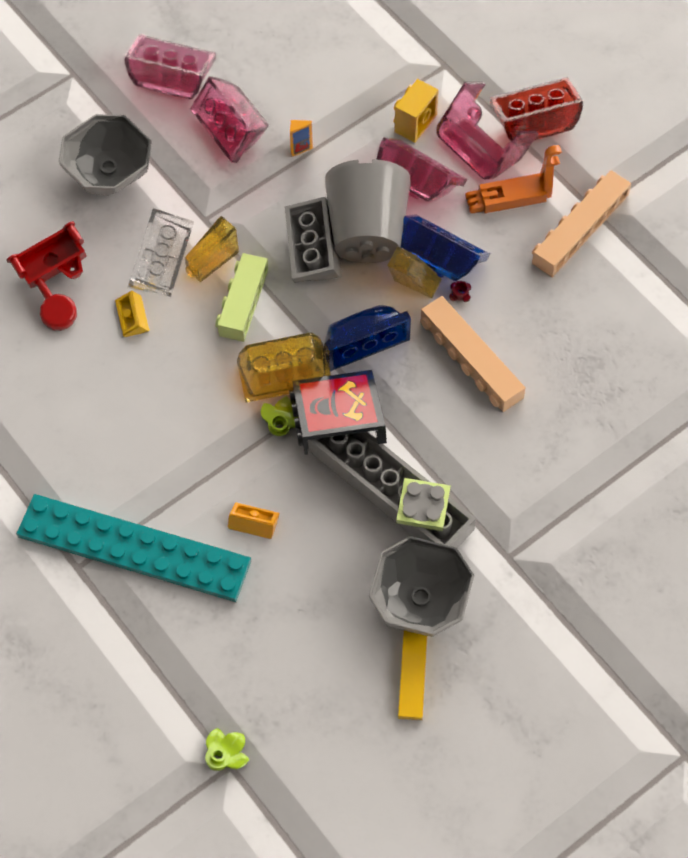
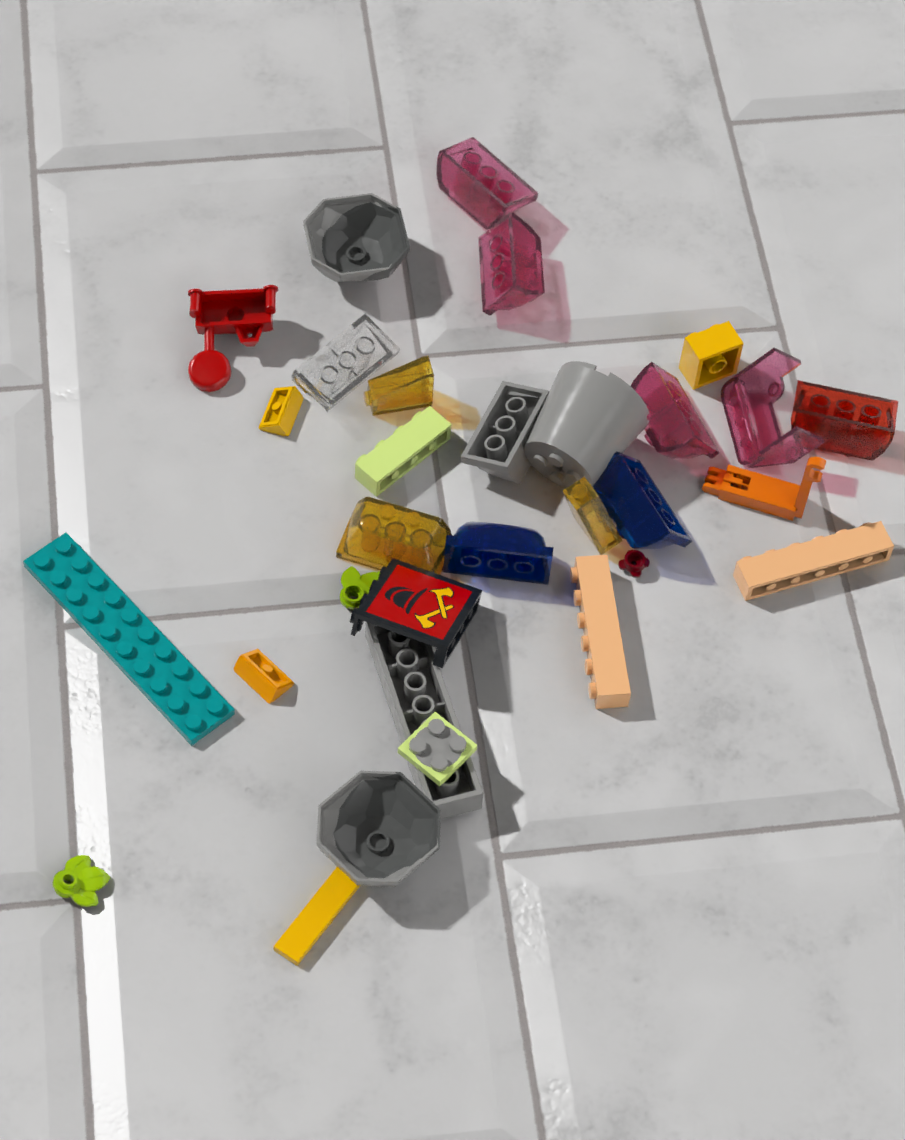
camera: 25 degrees right, 5 degrees down
(300, 136) = (569, 321): slope -> none

